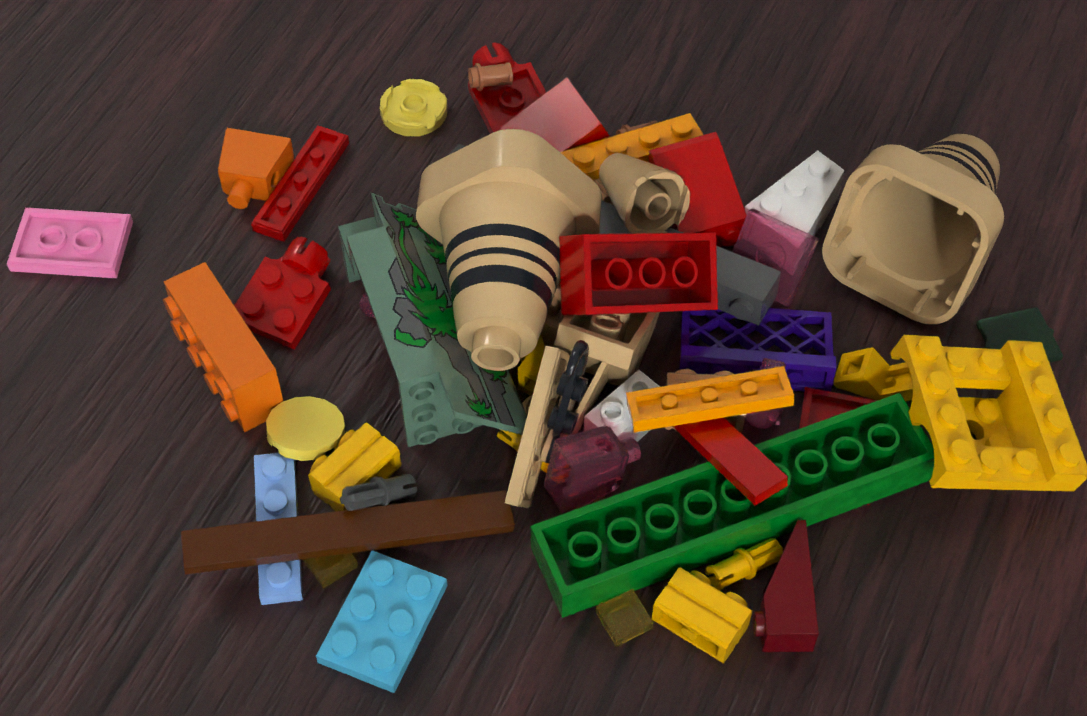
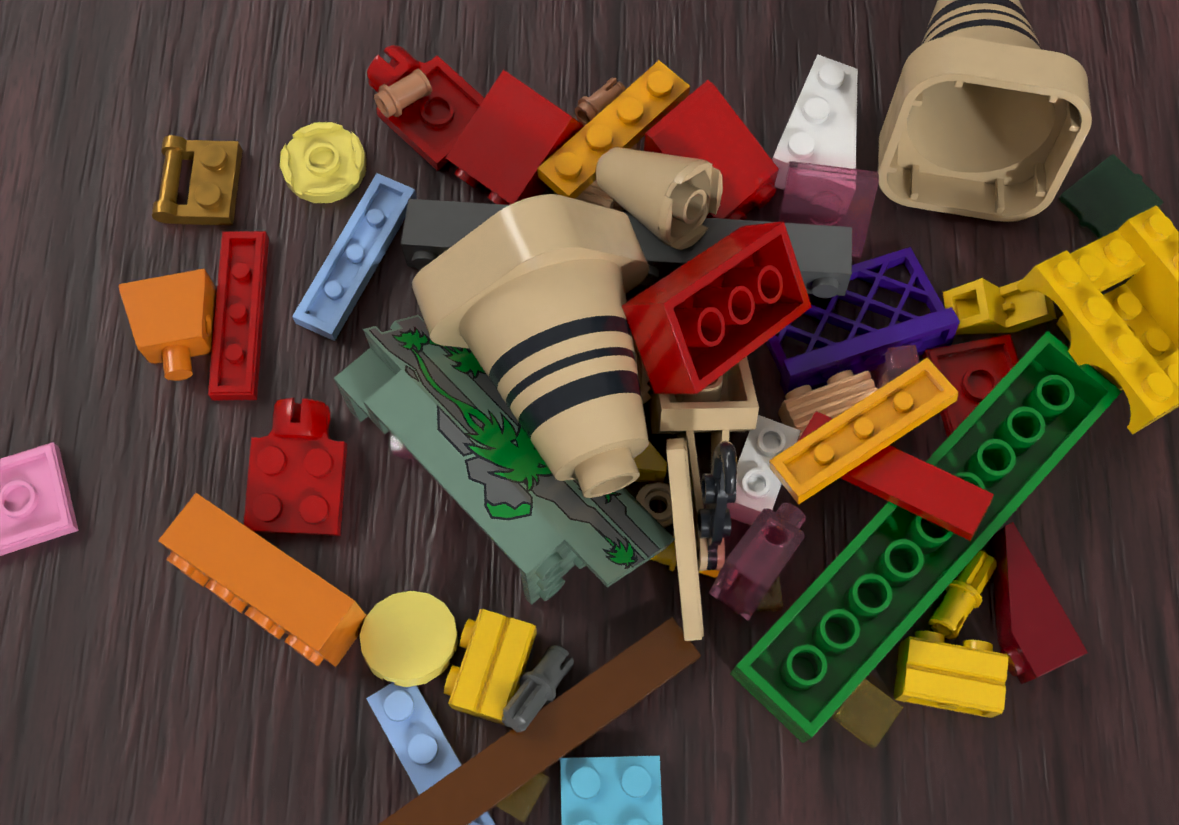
camera: 25 degrees left, 15 degrees up
(327, 94) = (211, 184): none -> pearl gold plate
(398, 173) = (354, 257): none -> light blue plate

